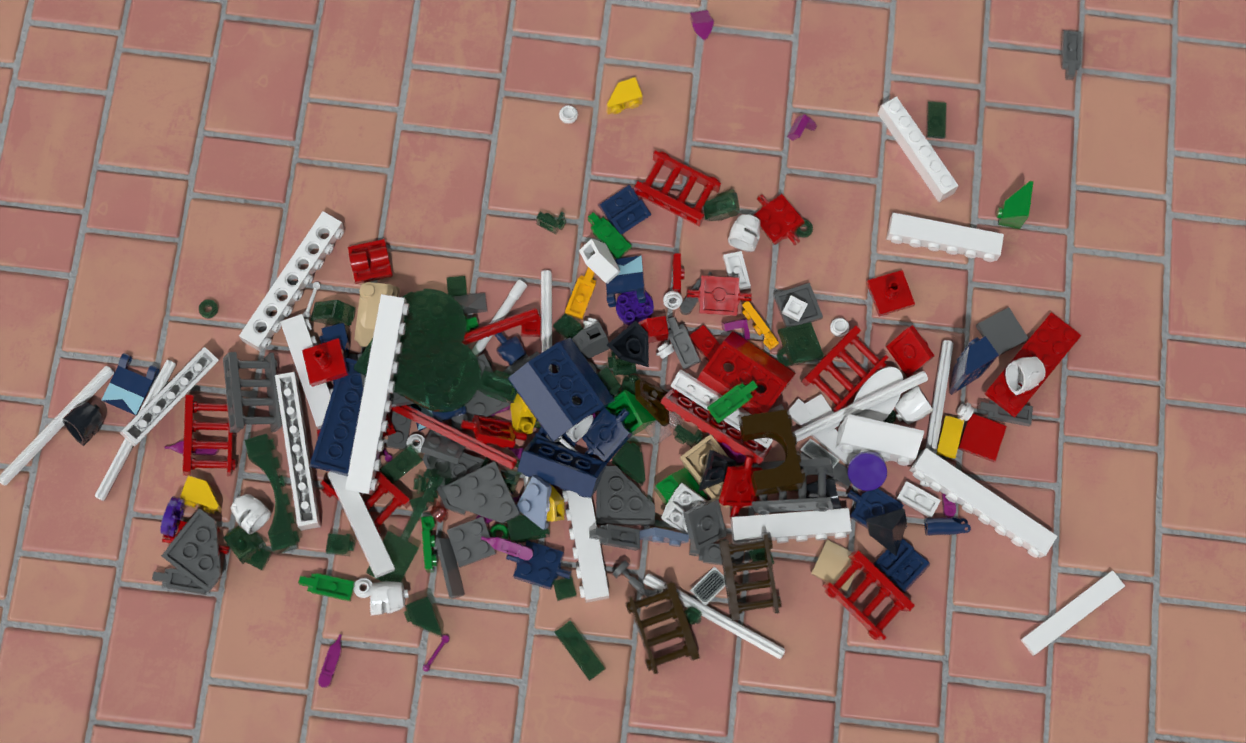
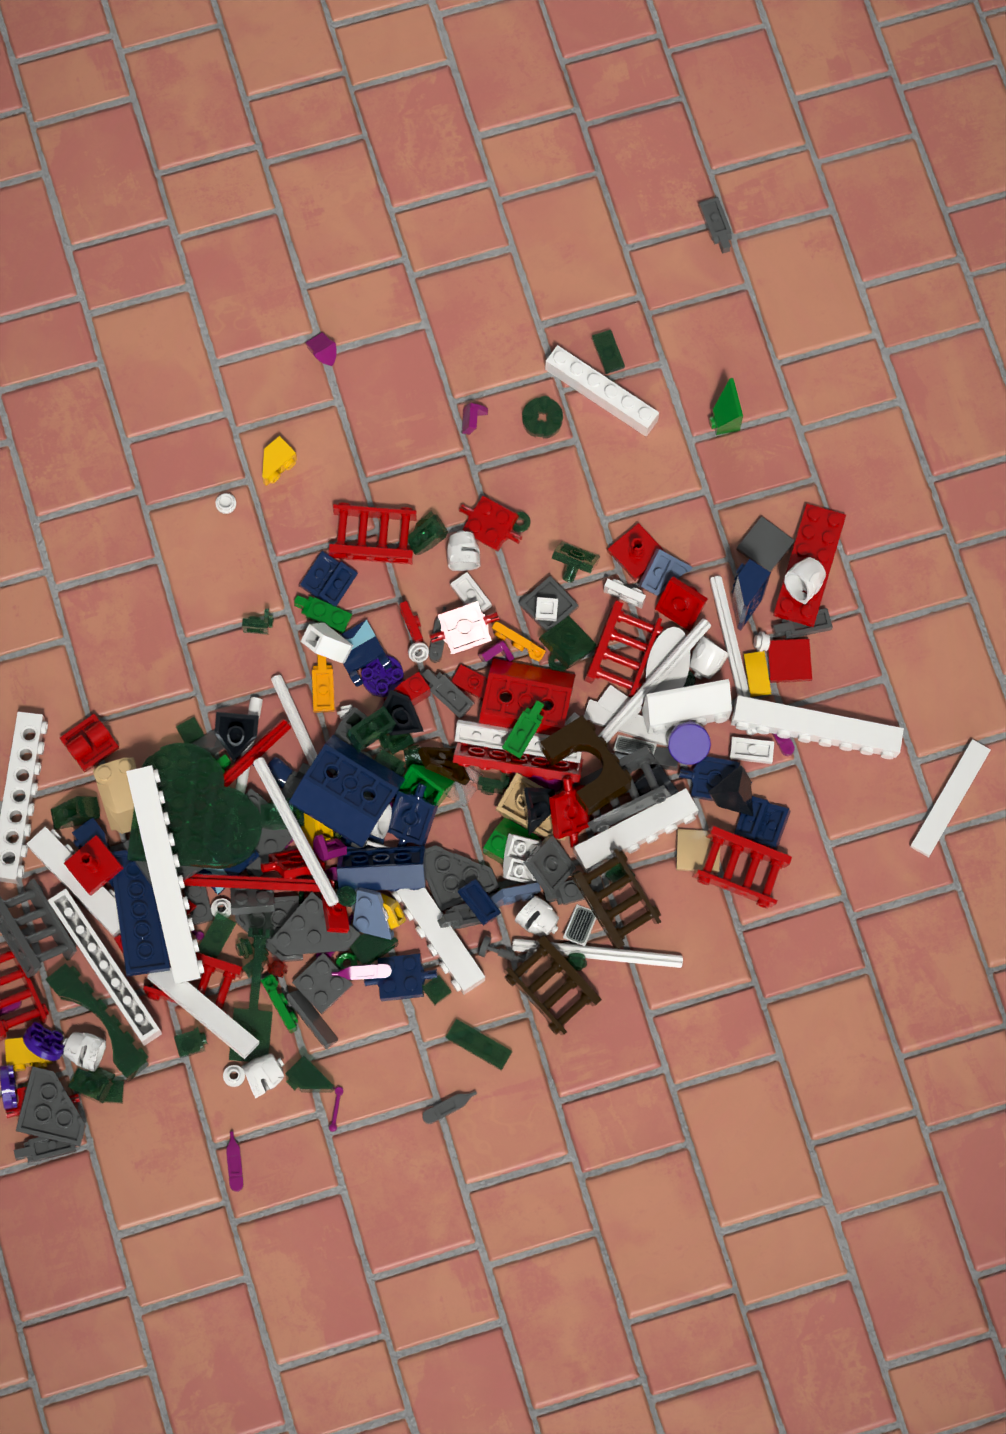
camera: 20 degrees left, 0 degrees up
(219, 491) = (44, 1042): none -> dark purple tile
(316, 286) = (44, 792): white hinge -> none
(328, 586) = (198, 1089): green hinge -> none
(492, 302) = (236, 731): none -> black slope
(503, 407) = (296, 832): none -> white axle
(506, 487) = (335, 917): none -> red plate
(521, 477) = (346, 896): none -> clear green plate
(525, 431) = (328, 849): none -> magenta tile
(529, 692) = (446, 1107): none -> dark grey piece
(531, 329) = (287, 742): red plate -> none
(567, 326) = (323, 724): clear green bracket -> none
(603, 346) = (371, 729): none -> clear green brick
(630, 461) = (448, 835): clear green slope -> none
(632, 529) = (479, 902): none -> dark blue tile
(665, 350) = (433, 707): white plate -> none
(676, 564) = (538, 917): none -> white helmet
(836, 277) = (575, 559): none -> clear green tile
(839, 327) = (599, 608): white plate -> none
(853, 159) = (540, 428): none -> clear green plate
(862, 318) = (617, 589): none -> white plate
(904, 316) = (661, 570): none -> sand blue wing
(945, 237) = (667, 471): white brick -> none
(945, 526) = (789, 765): dark blue piece -> none

